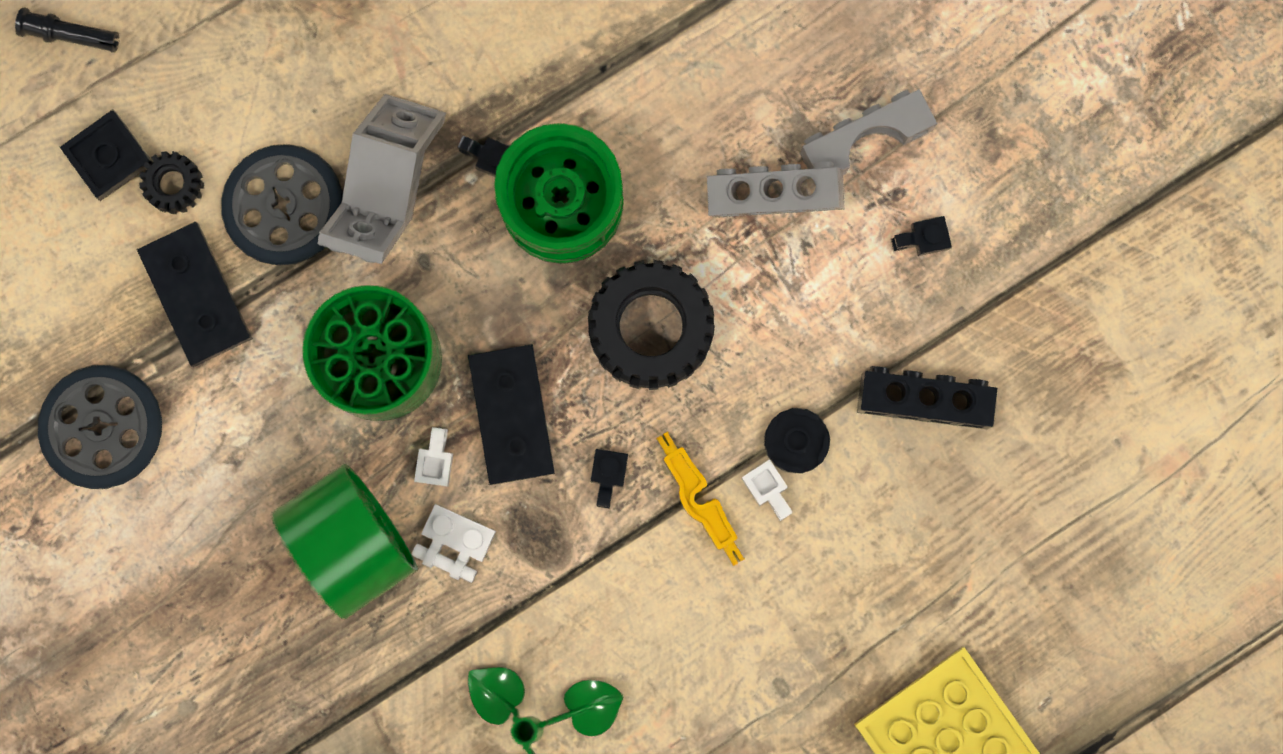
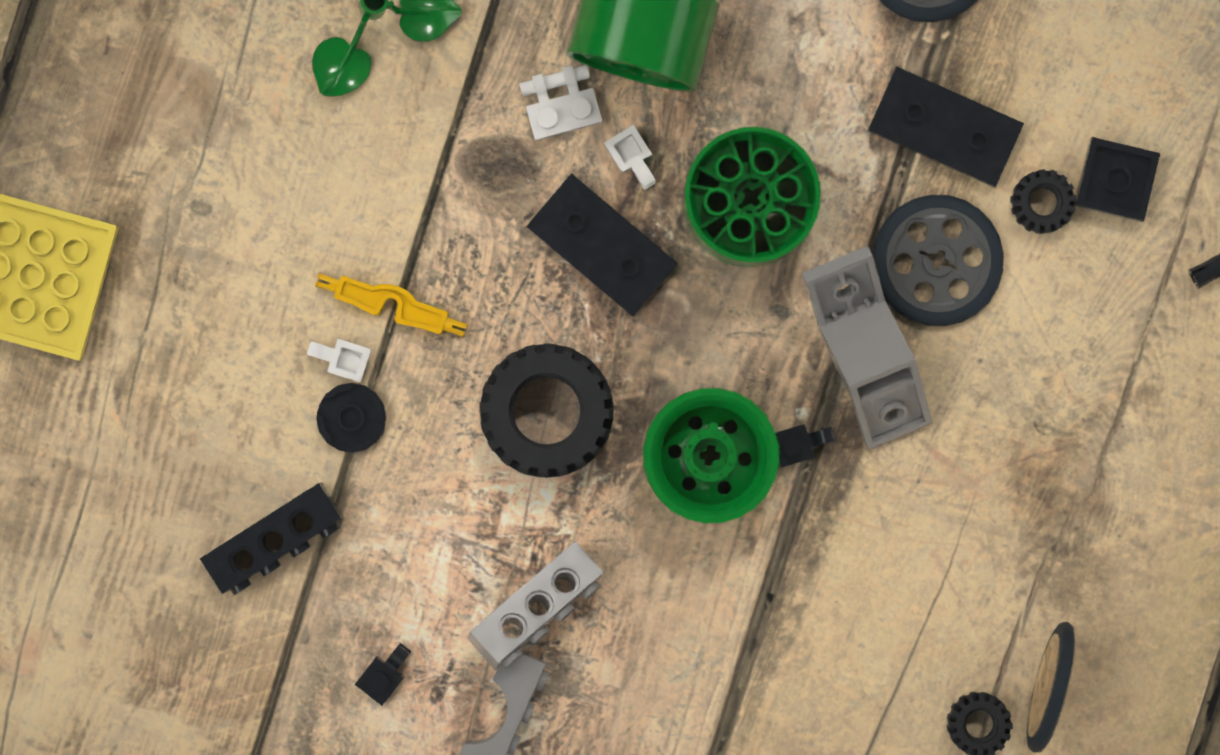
camera: 140 degrees right, 5 degrees up
(608, 471) = (483, 264): black plate -> none

